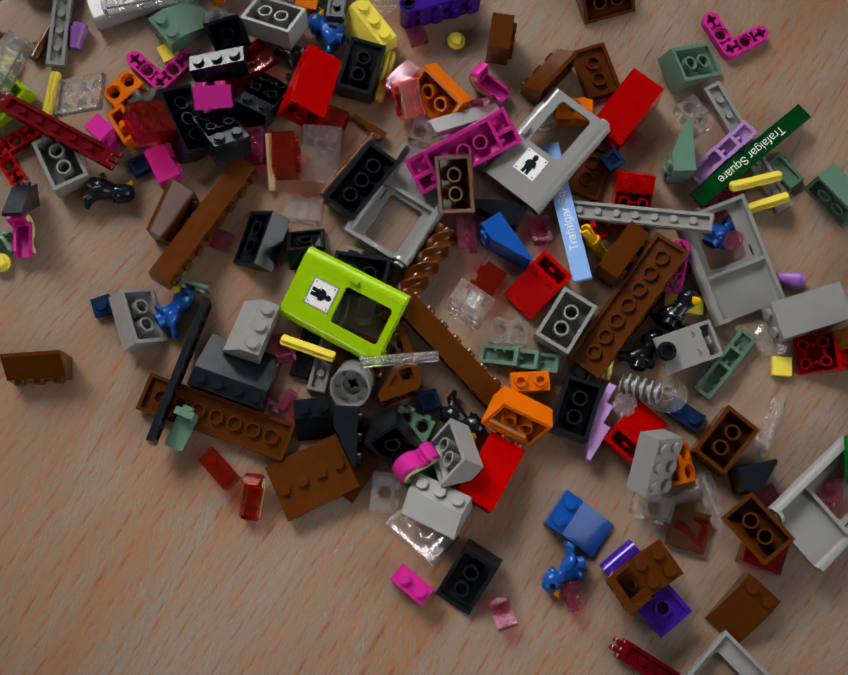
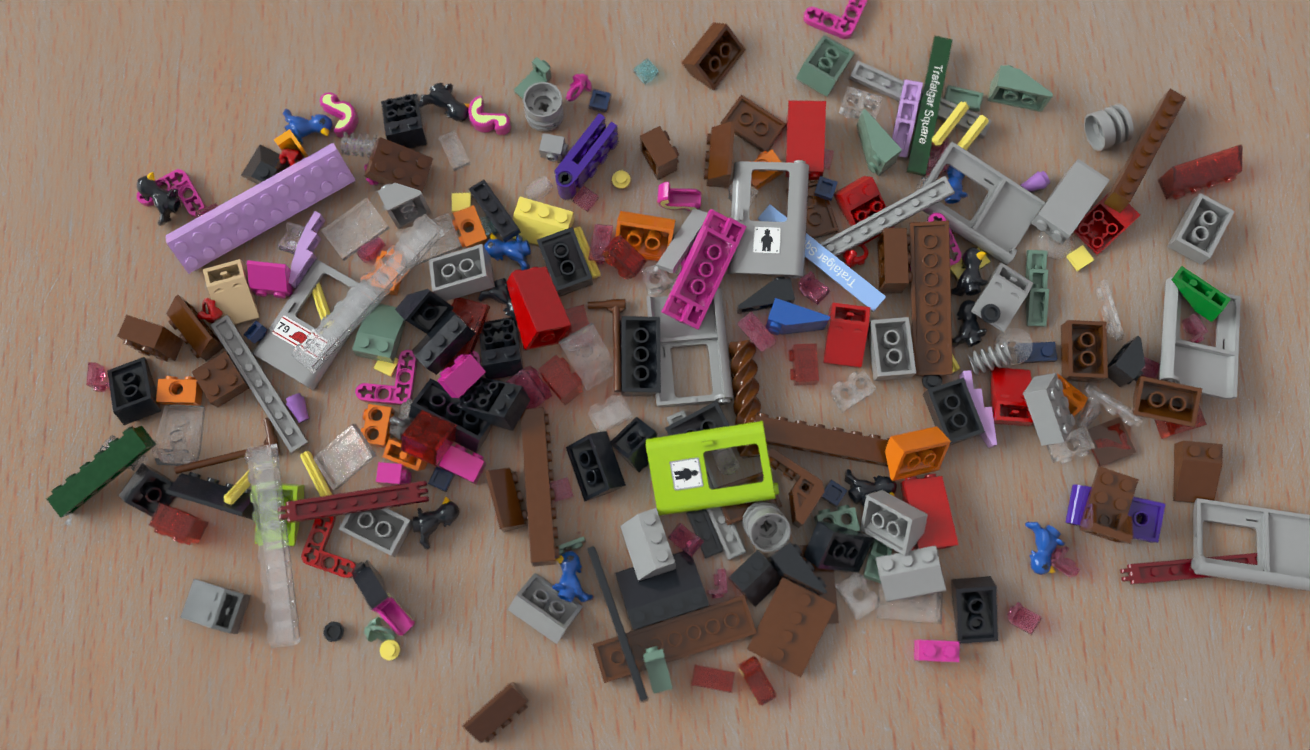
camera: 35 degrees left, 0 degrees up
(101, 306) = (505, 620): dark blue plate -> none
(271, 177) = (552, 395): tan bar -> none
(307, 348) = (706, 525): light yellow axle -> none
(398, 359) = (791, 479): clear axle -> none
(414, 462) = (868, 551): dark pink animal -> none
(455, 183) = (721, 300): reddish brown slope -> none
(470, 305) = (810, 391): clear brick -> none
(483, 101) = (685, 215): clear pink tile -> none
(519, 358) = (877, 405): sand green slope -> none
(530, 382) = (901, 418): orange brick -> none
(578, 523) = (1023, 501): blue slope -> none
(593, 240) = (862, 265): yellow pin -> none
(624, 404) = (989, 380): clear gear -> none
(734, 239) = (970, 183): clear pink tile -> none

